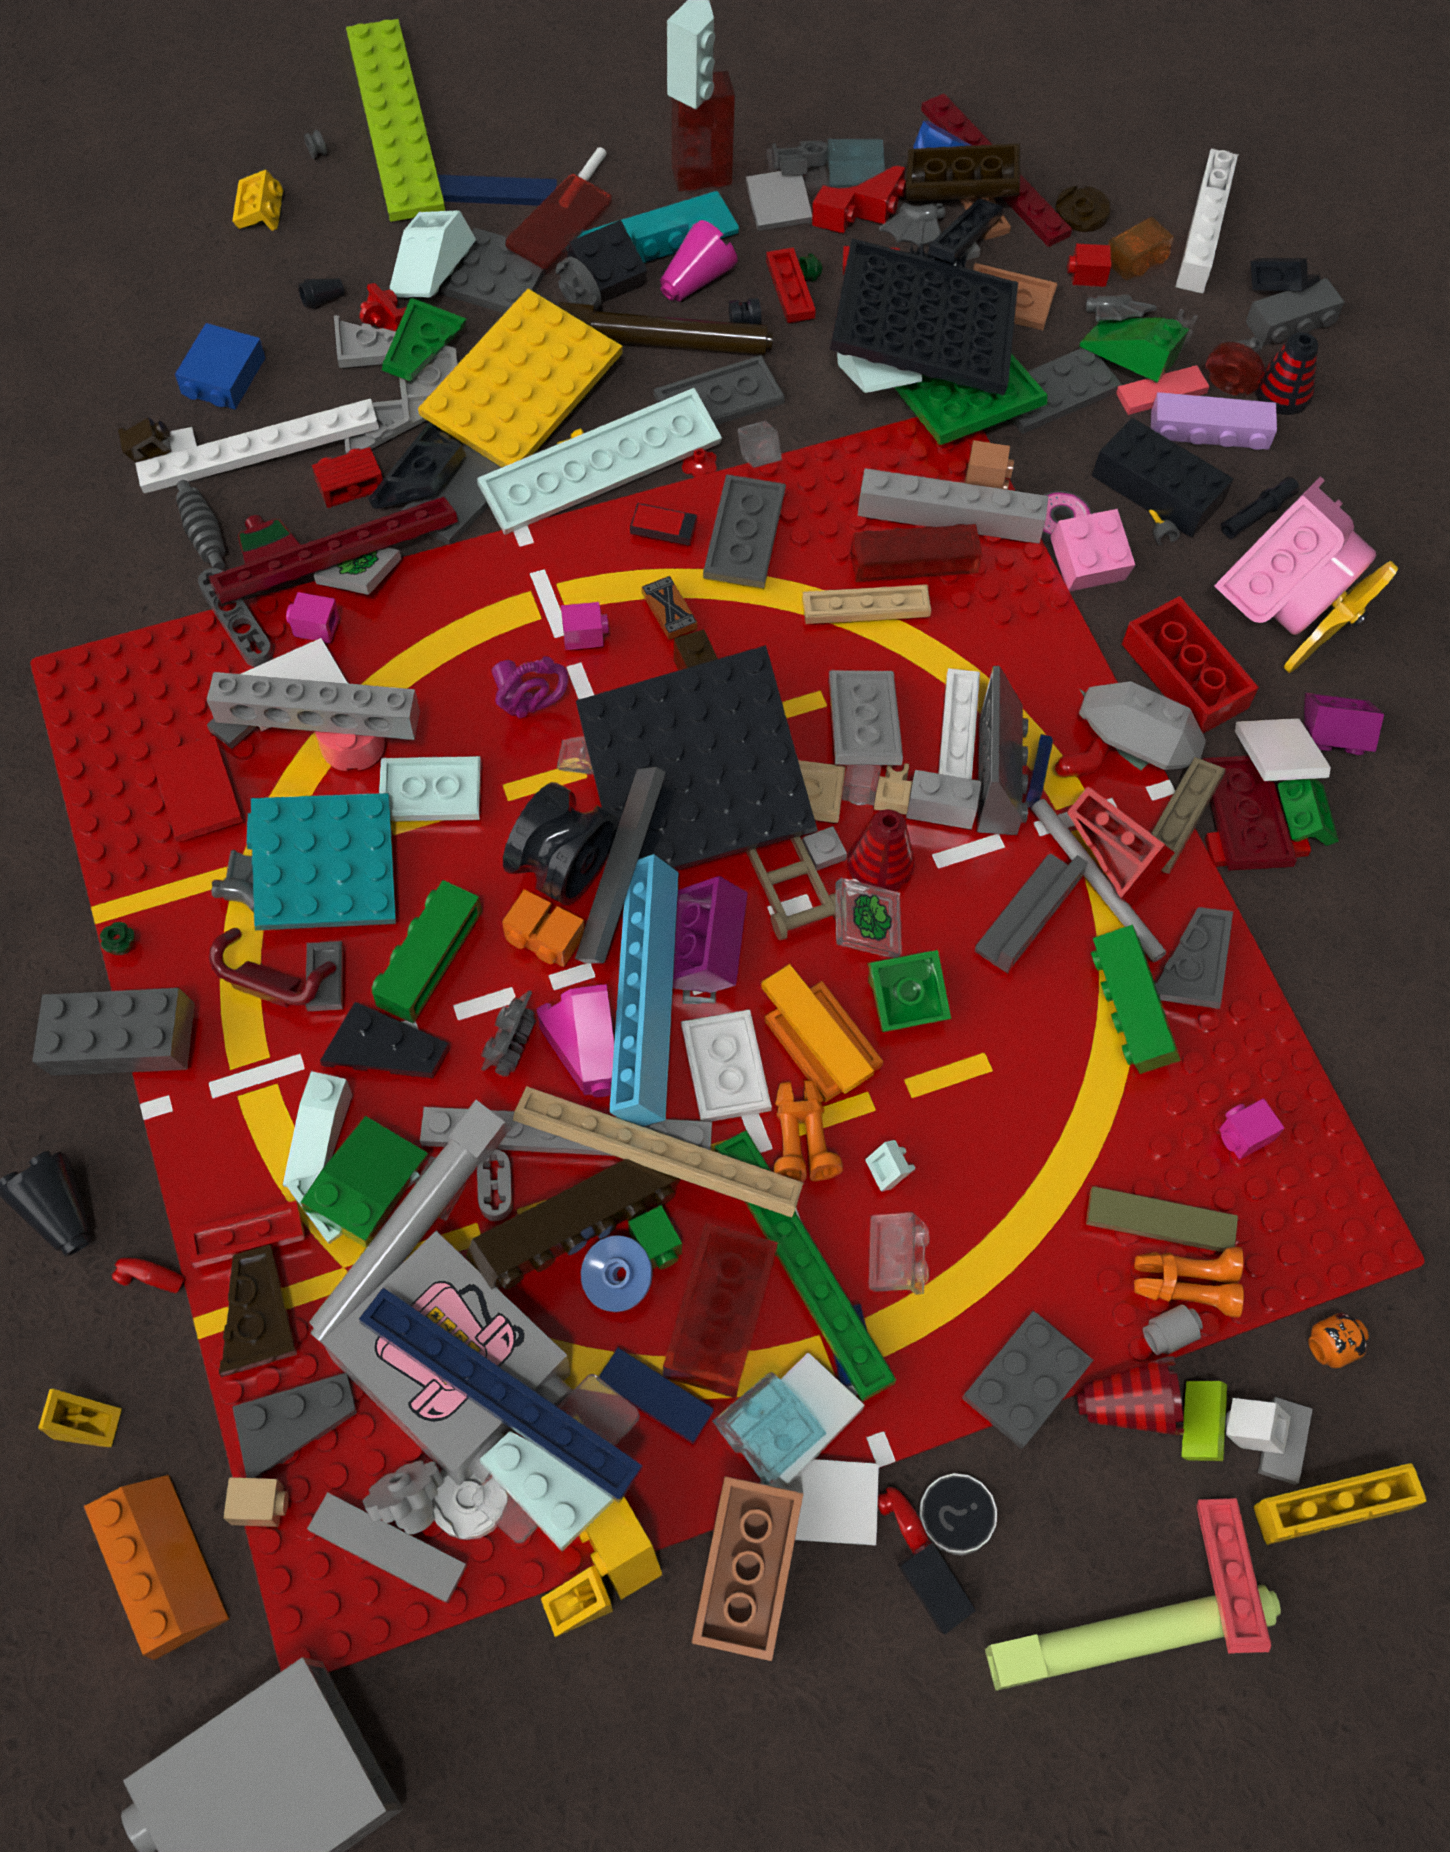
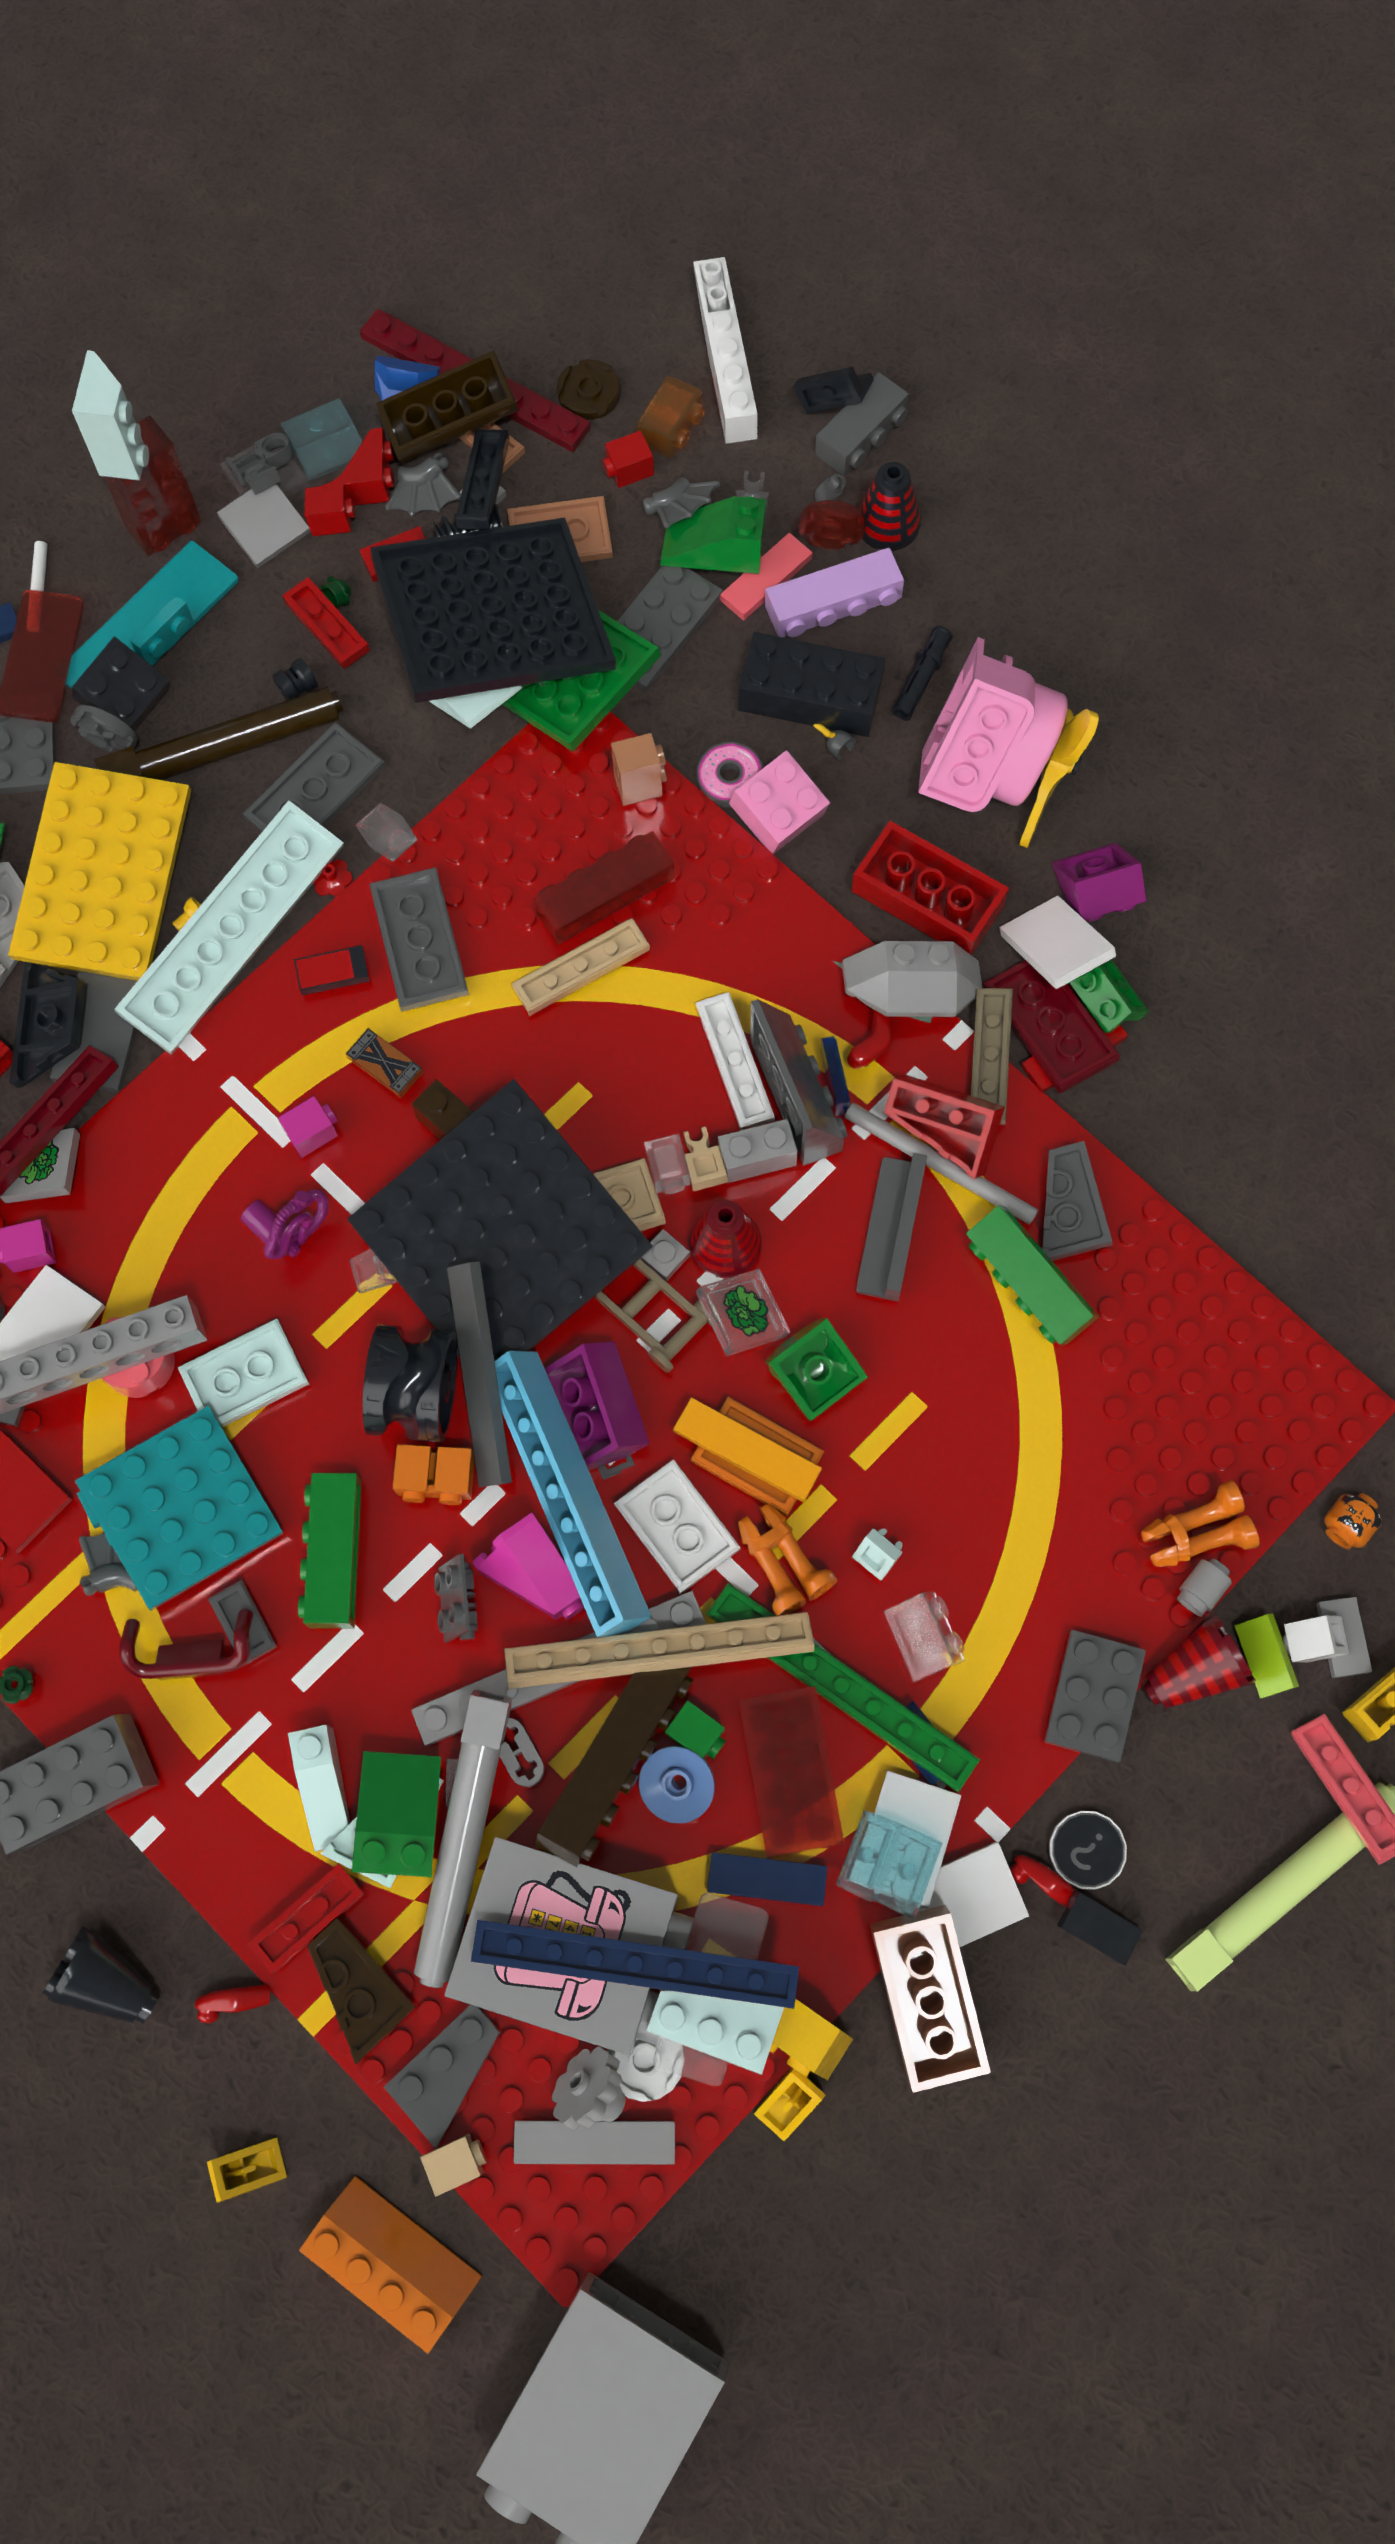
camera: 20 degrees left, 10 degrees up
(383, 1043) = (335, 1665): black wing -> none
(697, 262) = (215, 643): dark pink cone -> none
(865, 718) = (641, 1099): light grey tile -> none
(949, 503) = (617, 817): light grey brick -> none
(1161, 1219) = (1148, 1483): olive tile -> none
(1250, 1128) = (1190, 1355): dark pink brick -> none

